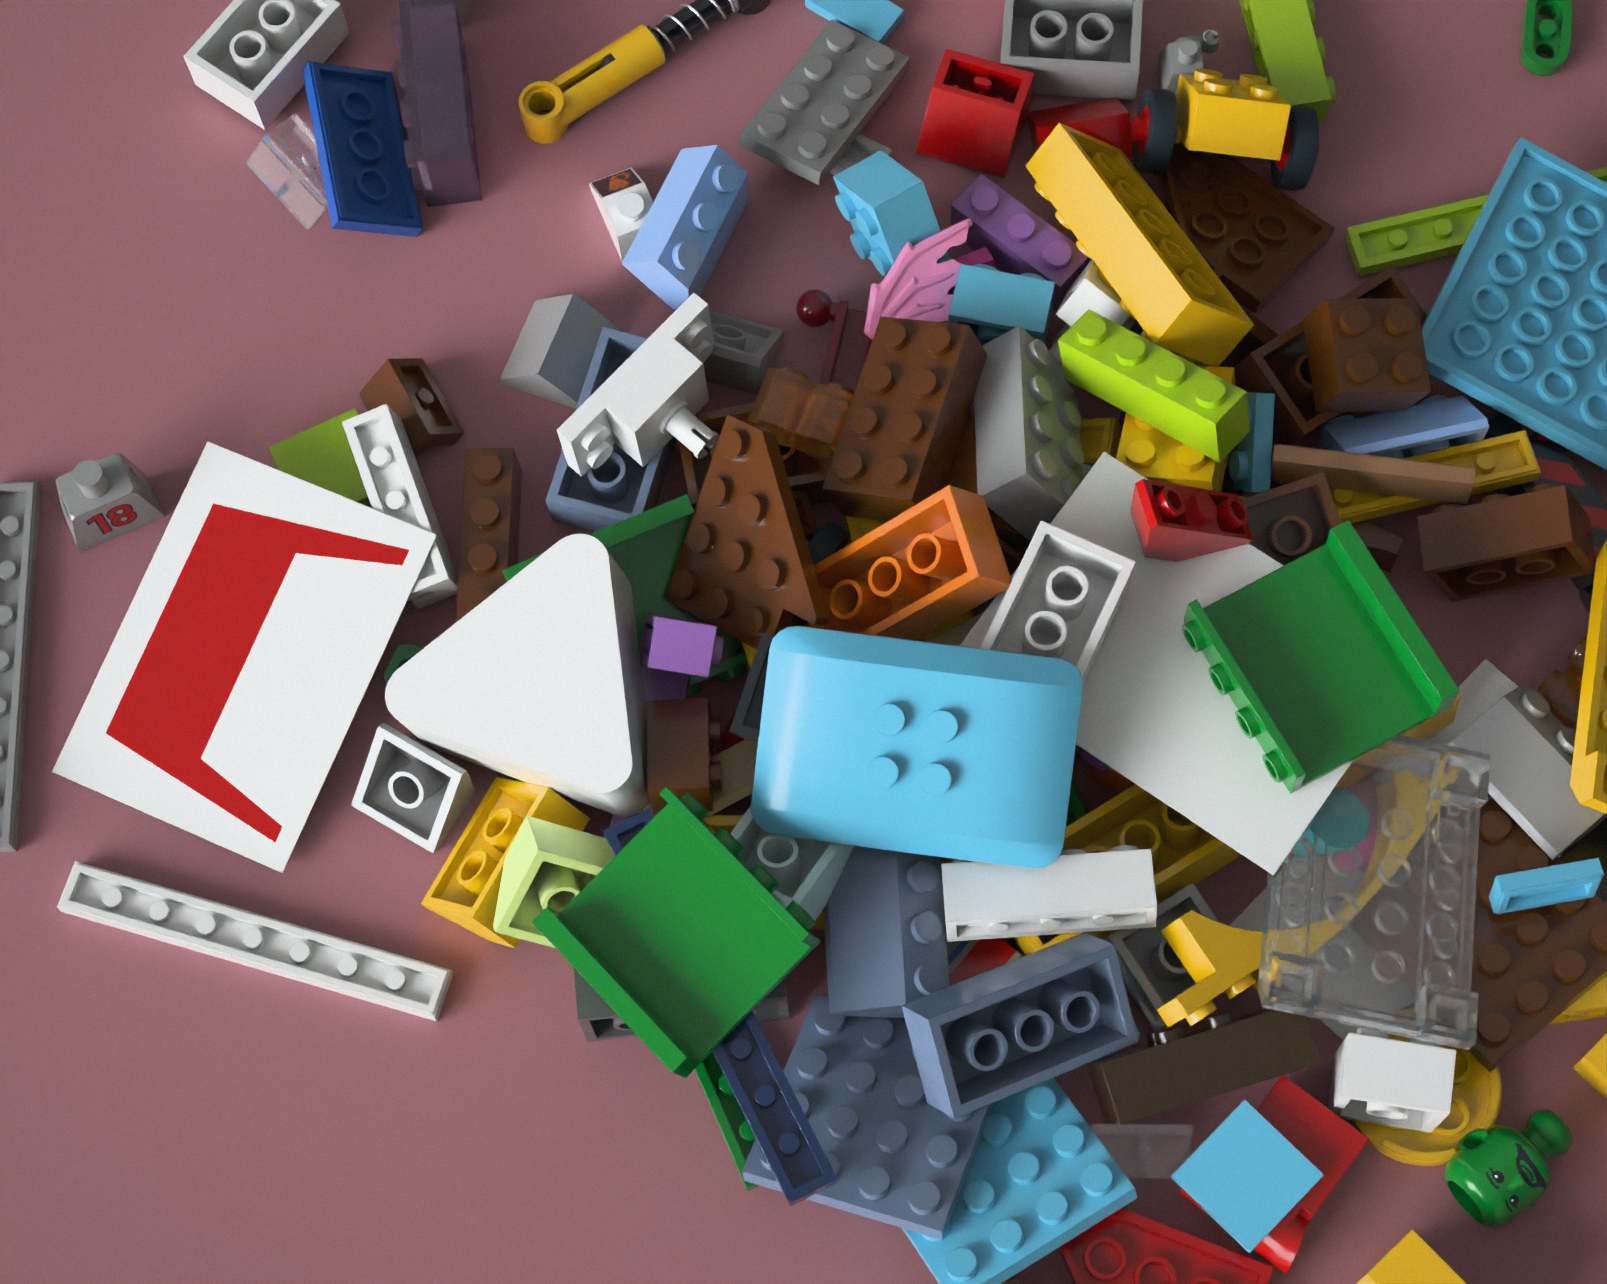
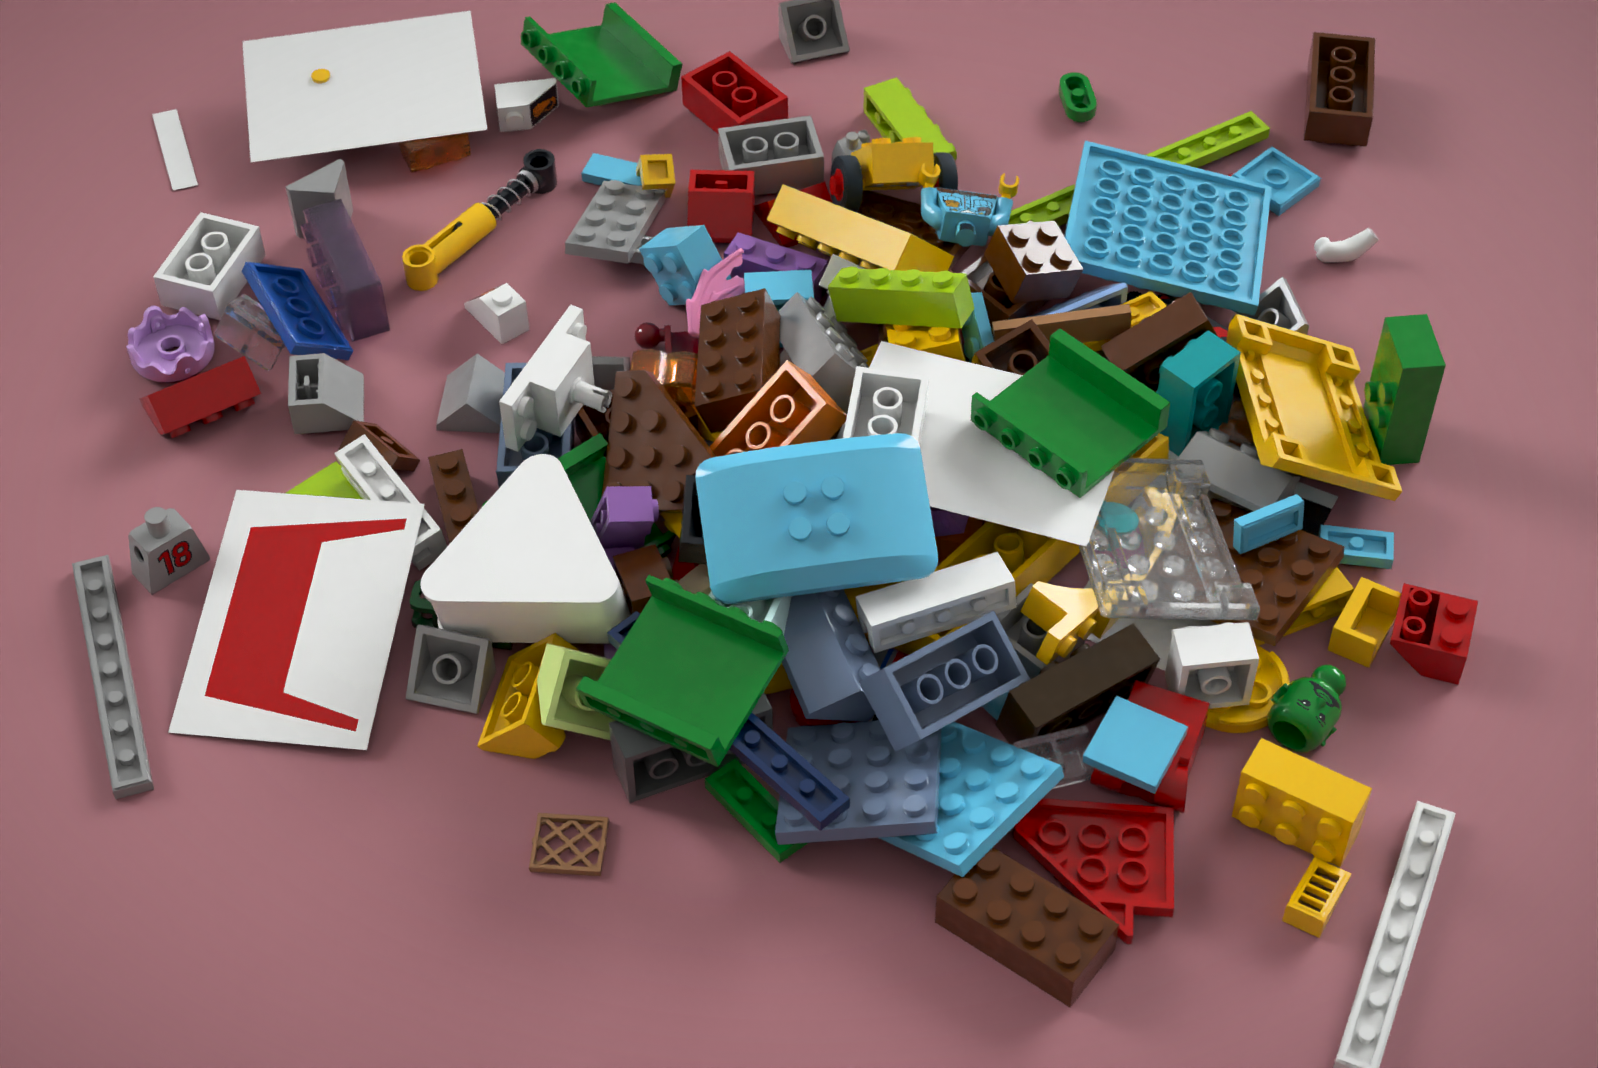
camera: 20 degrees left, 20 degrees down
(183, 136) = (163, 332): none -> lavender plate
(206, 257) = (202, 397): none -> red slope
(256, 941) = (357, 798): white tile -> none
(364, 300) = (323, 394): none -> light grey slope
(532, 1097) = (562, 867): none -> medium nougat window
(689, 224) = (544, 293): light blue slope -> none
(901, 35) = (657, 172): none -> yellow panel
(1186, 521) = (950, 356): red slope -> none
(1305, 226) = (964, 215): none -> medium azure torso
(1524, 627) = (1199, 387): none -> teal brick

